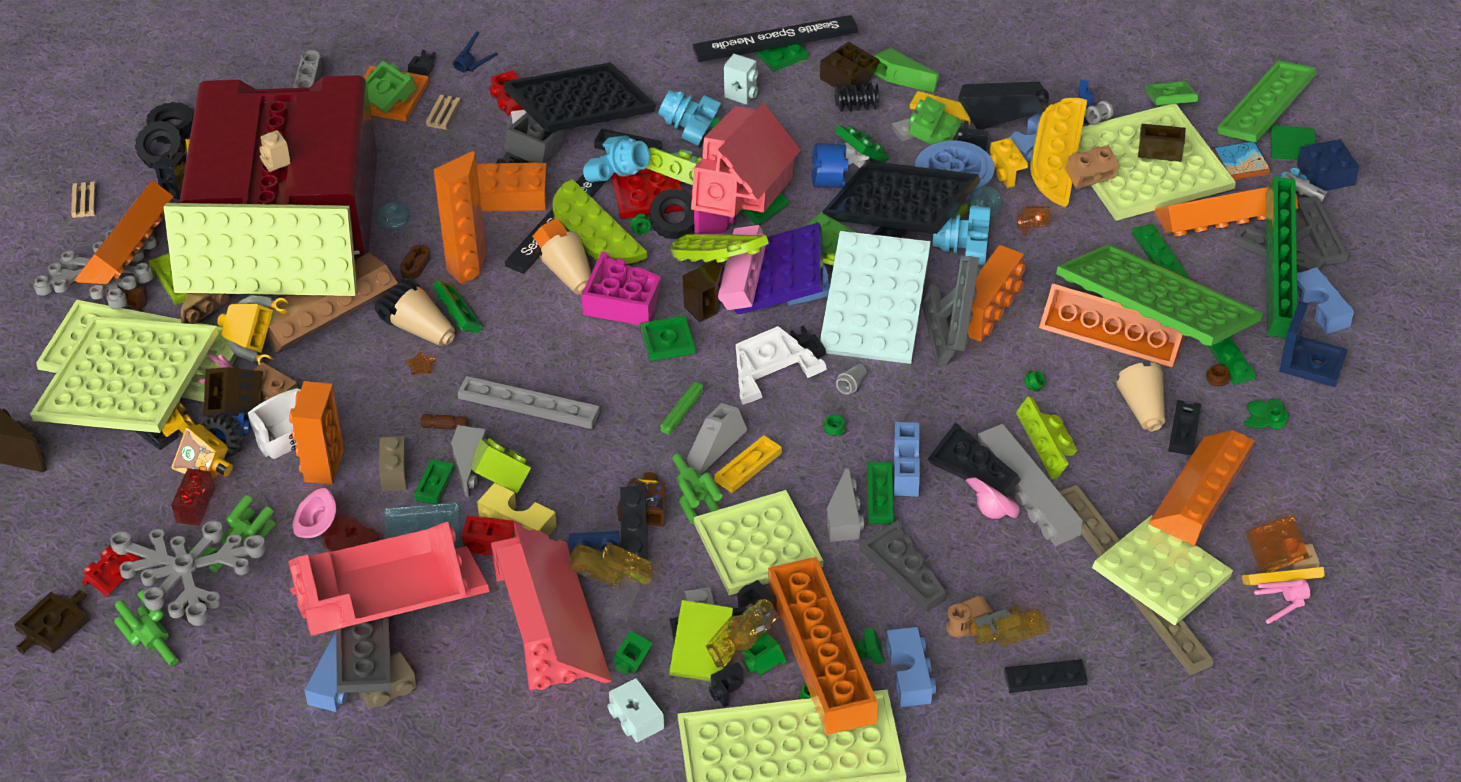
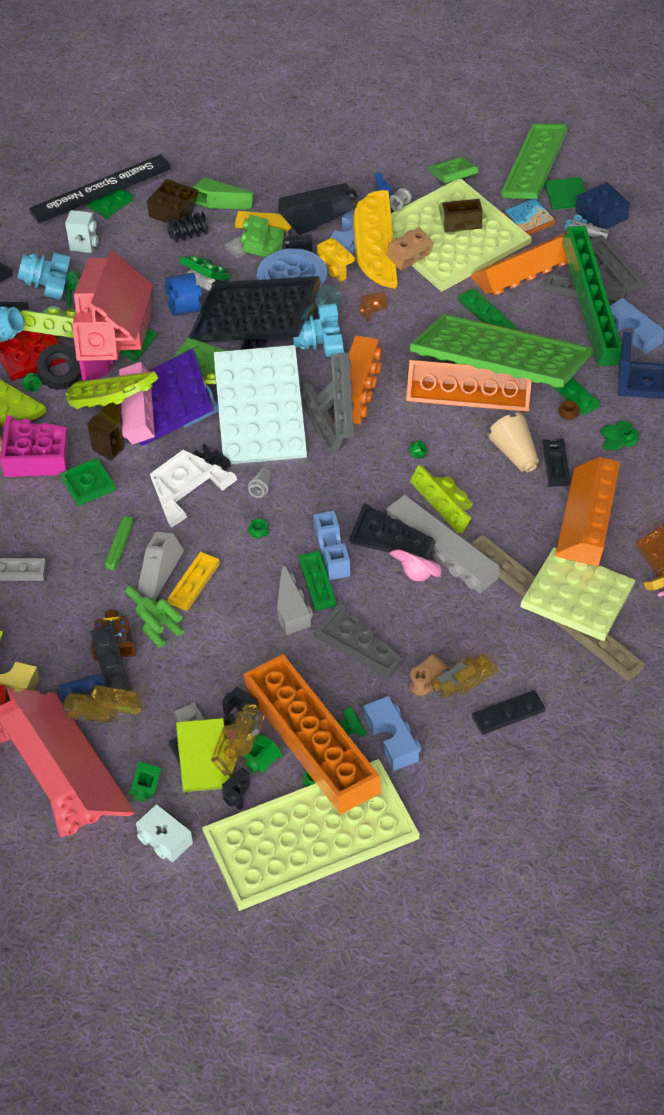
camera: 15 degrees left, 5 degrees up
(753, 537) = (221, 649): yellowish green plate -> none

